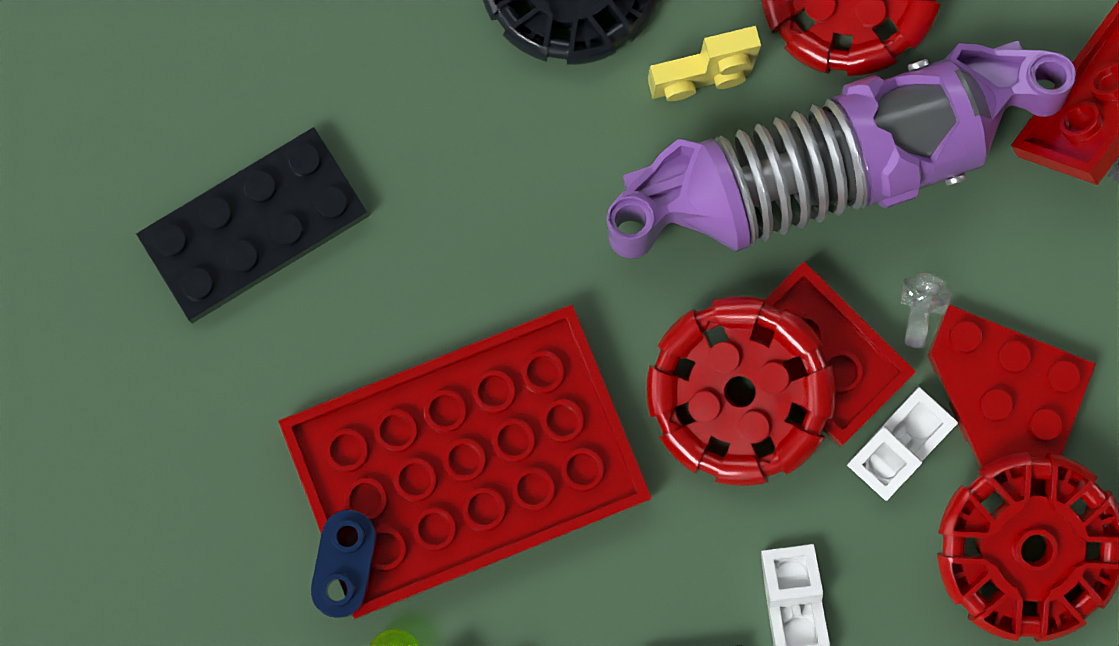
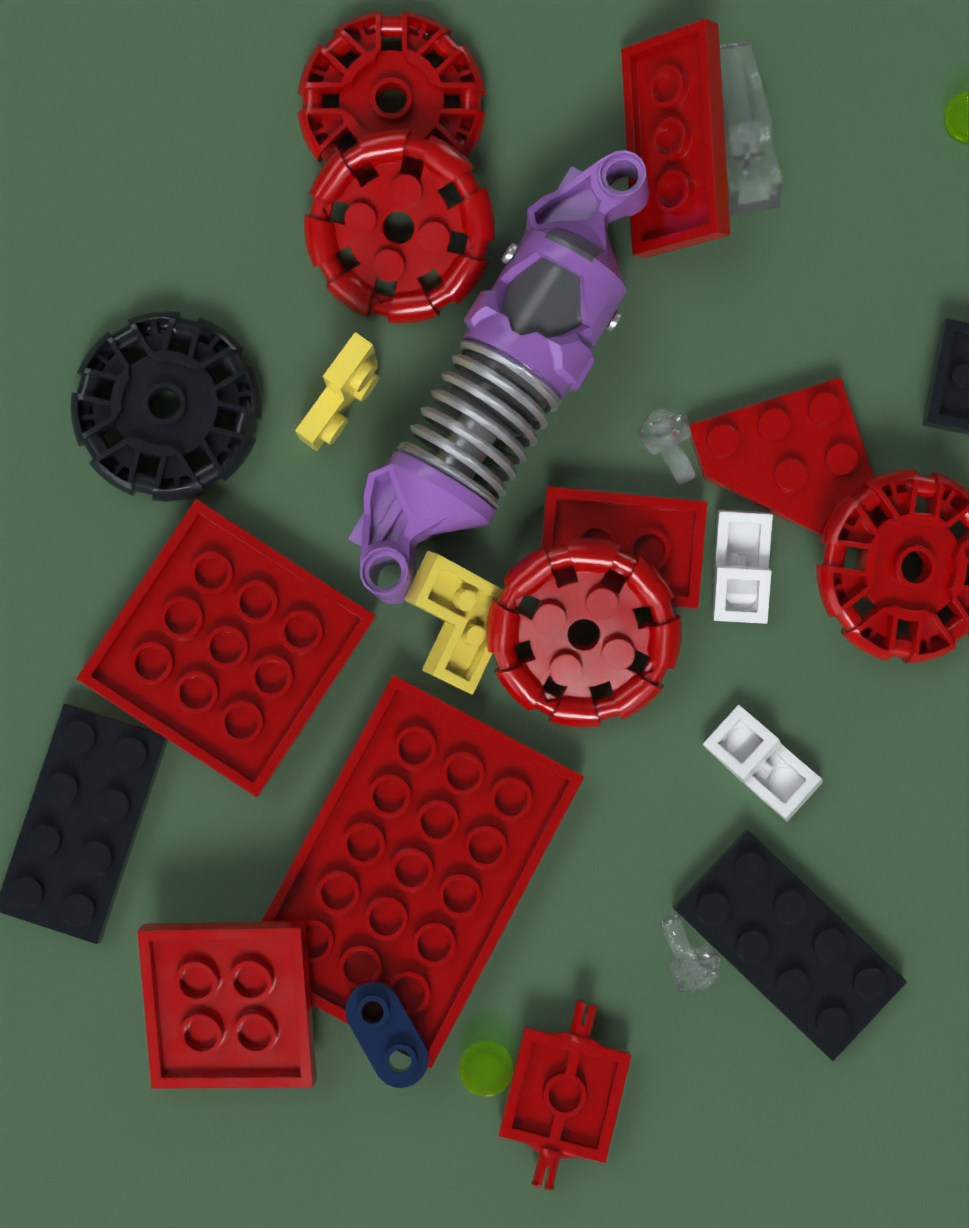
camera: 40 degrees left, 5 degrees up
(246, 443) = (227, 1004): none -> red plate
(466, 185) = (226, 648): none -> red plate
(667, 292) = (463, 603): none -> light yellow plate

